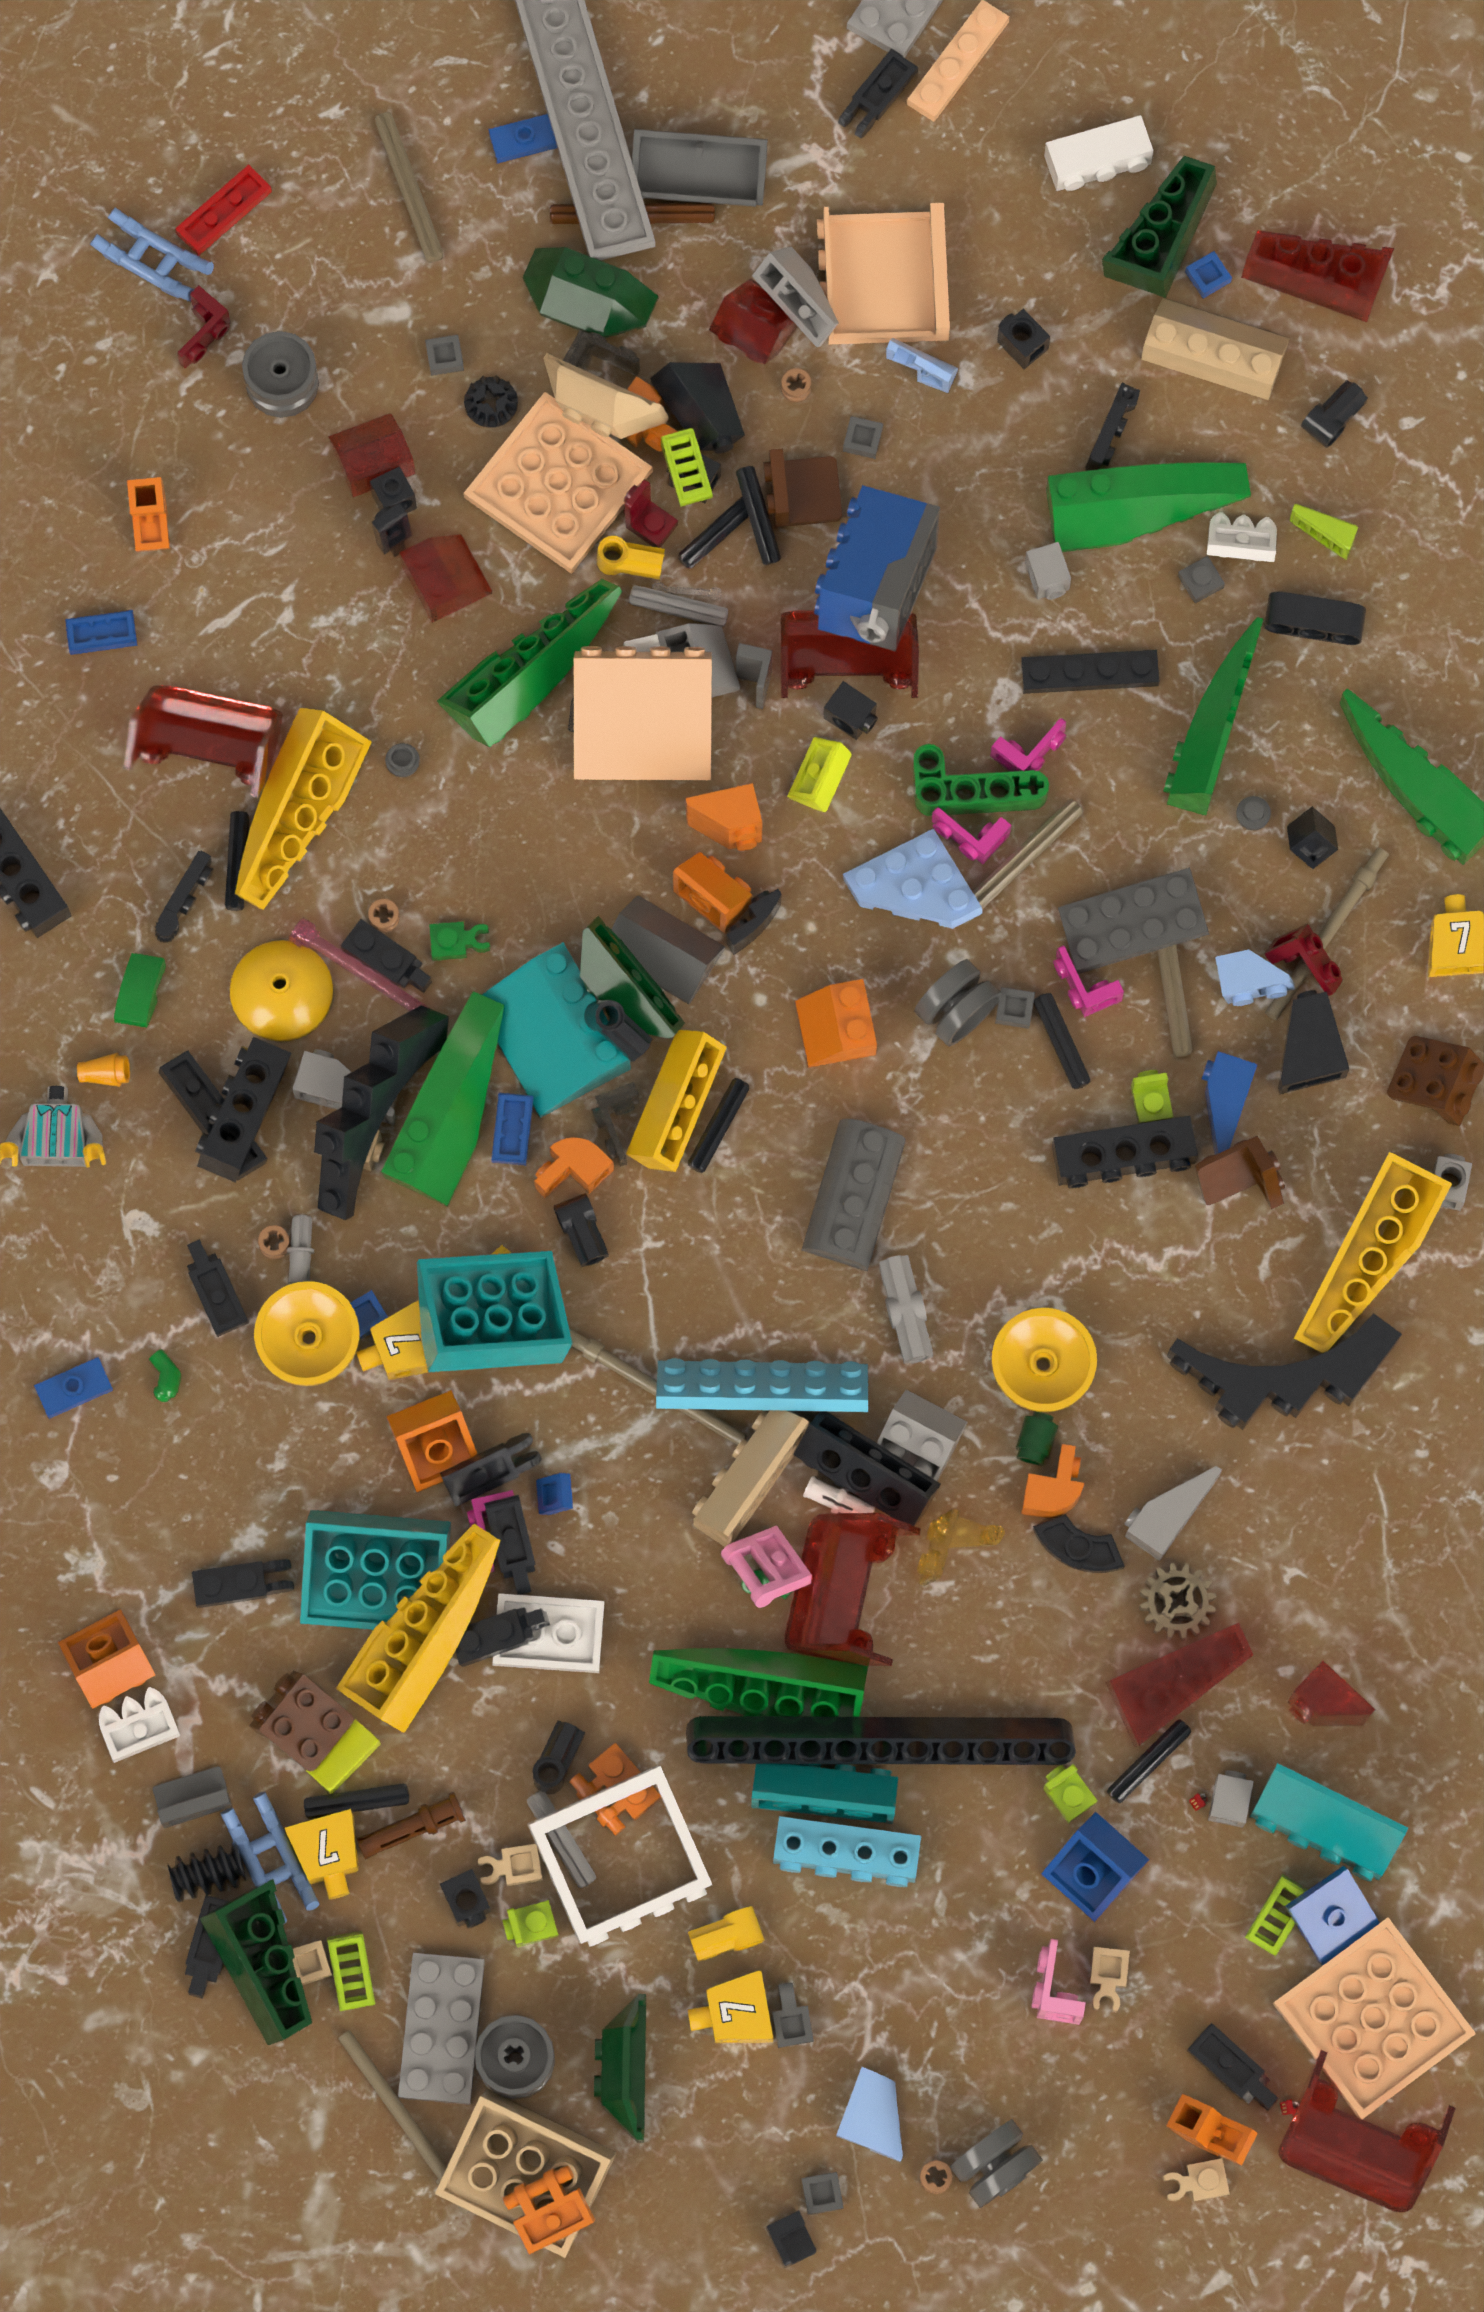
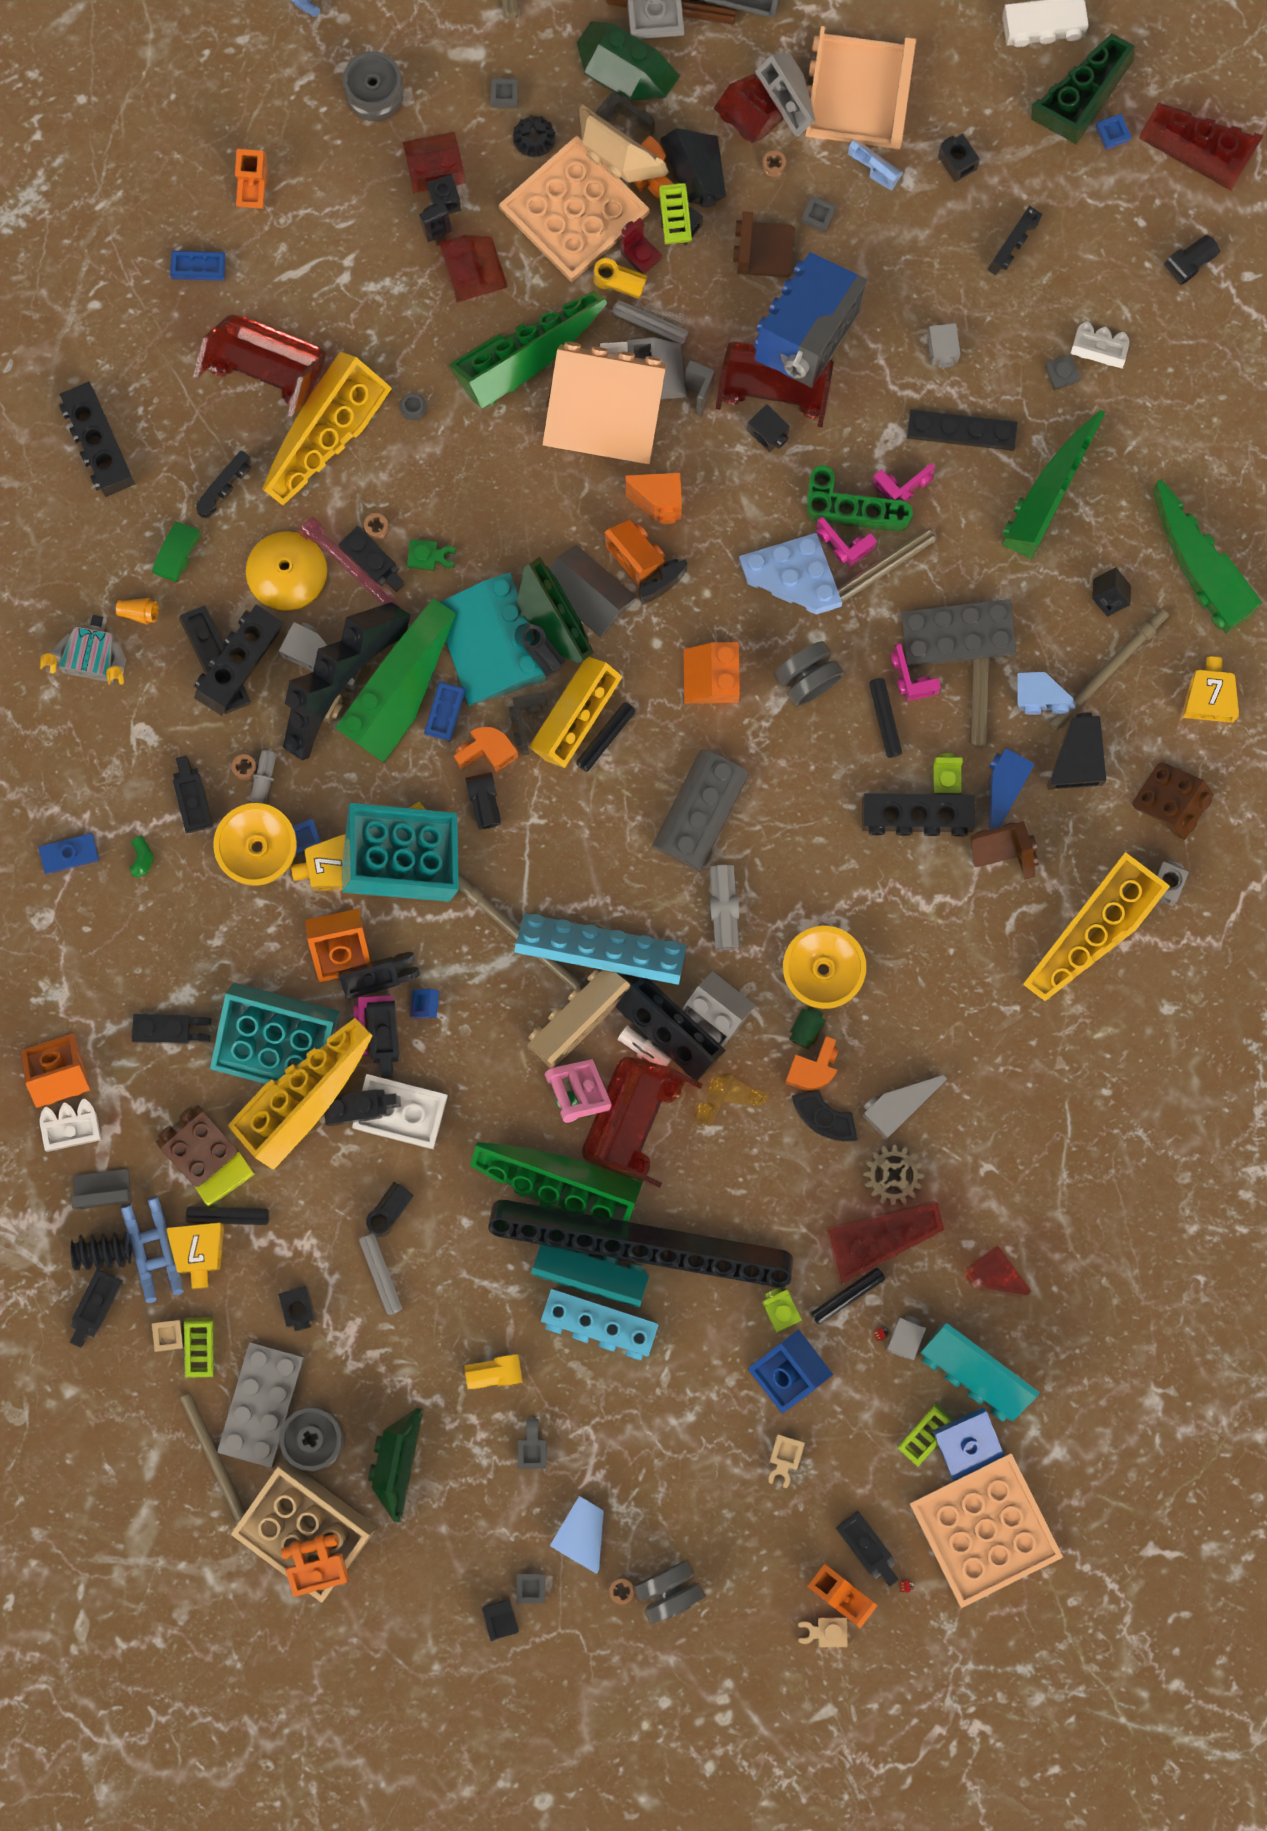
camera: 10 degrees right, 5 degrees up
(205, 309) = (330, 40): dark red bracket -> none
(237, 840) = (274, 443): black axle -> none
(260, 1961) = (128, 1328): dark green wedge -> none
(428, 1820) = (278, 1241): reddish brown pin -> none
(518, 1865) = (342, 1289): tan plate -> none
(530, 1924) = (344, 1336): lime bracket -> none
(609, 1770) = (437, 1238): orange plate -> none
(631, 1917) = (410, 1252): white window -> none
(714, 534) = (692, 268): black axle -> none
(735, 2011) = (490, 1434): yellow torso -> none
(758, 515) = (725, 261): black axle -> none
(820, 774) = (736, 474): neon yellow slope -> none
(1015, 1008) = (853, 685): dark grey plate -> none
(1064, 2006) = (745, 1477): bright pink bracket -> none
(1130, 501) = (1017, 301): green wedge -> none
(1214, 348) = (1107, 191): tan slope -> none
(1253, 813) = (1069, 564): dark grey plate -> none
(1290, 1386) = (977, 1017): black arch -> none
(1310, 946) = (1093, 677): dark red bracket -> none
(1315, 618) = (1146, 418): black beam -> none
(1327, 530) = (1168, 350): lime slope -> none
(1358, 2153) = (955, 1634): clear red windscreen -> none

